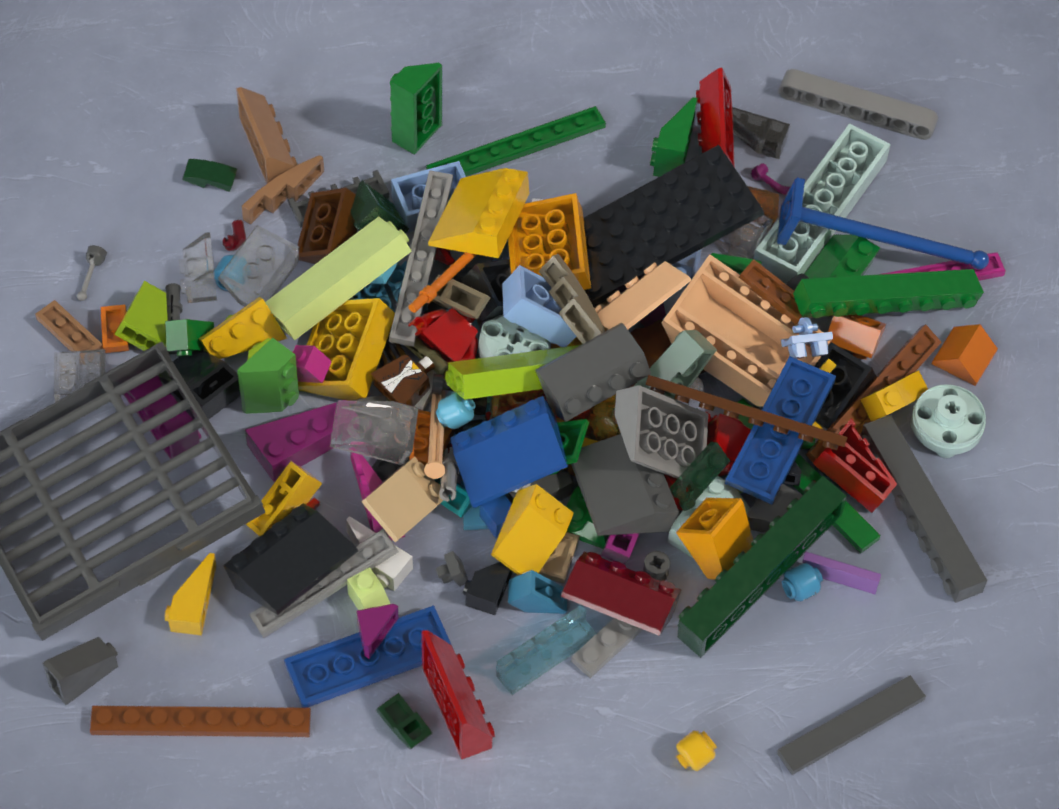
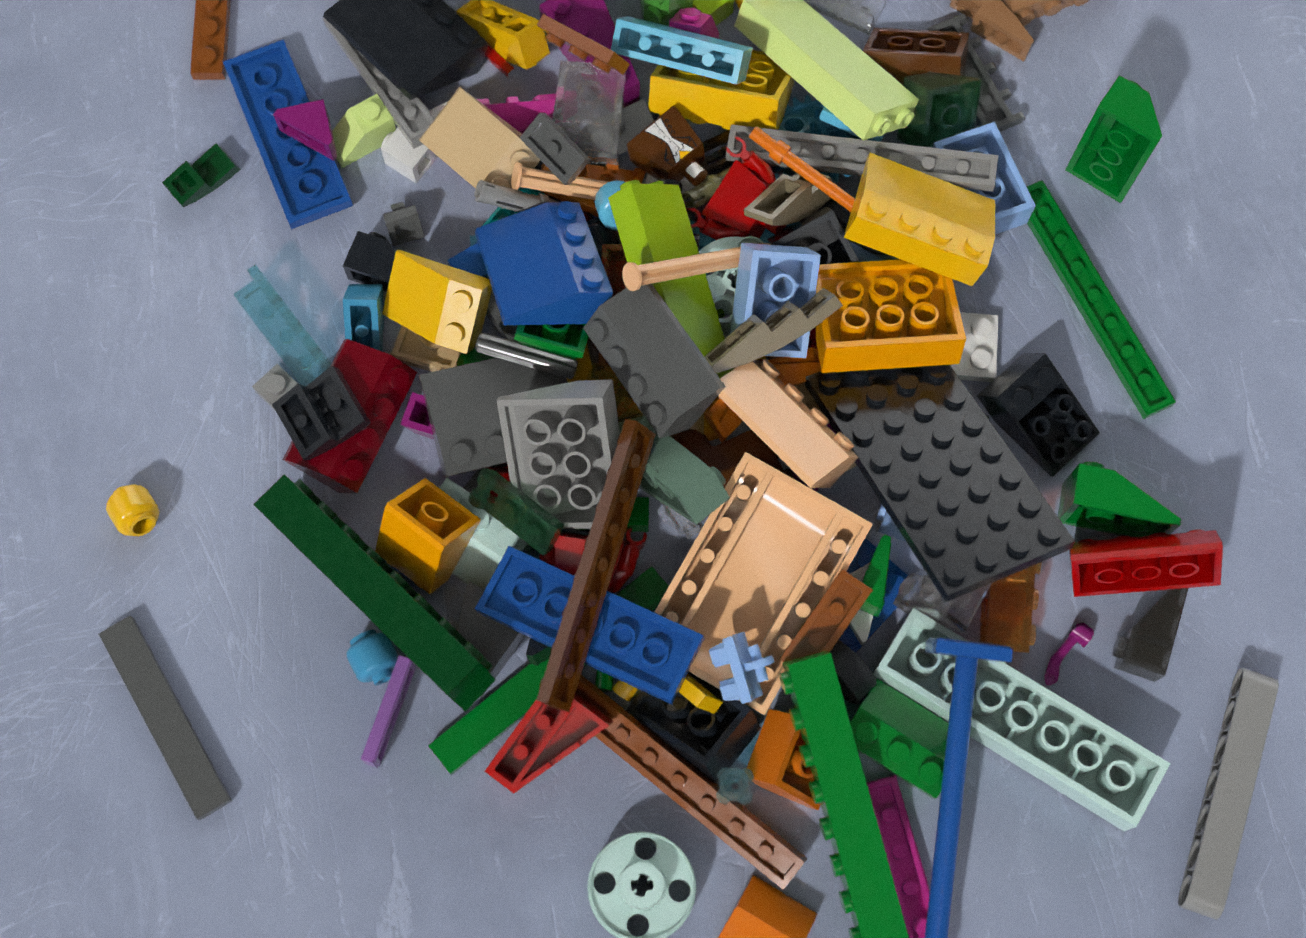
camera: 90 degrees right, 15 degrees up
(324, 425) = (582, 46): none -> dark orange plate
(333, 358) = (681, 49): none -> medium azure brick
(416, 440) = (555, 148): none -> dark grey plate
(455, 696) = (209, 214): red slope -> none
(541, 368) = (638, 275): none -> light nougat axle
(583, 464) = (526, 355): none -> dark grey axle
(603, 179) = (1039, 411): none -> black slope
(626, 602) = (321, 413): none -> black slope
(657, 558) = (406, 476): dark grey wheel -> none
(880, 352) = (734, 775): none -> clear light blue plate
(894, 396) = (676, 810): yellow slope -> none
(925, 512) = (491, 836): dark grey brick -> none

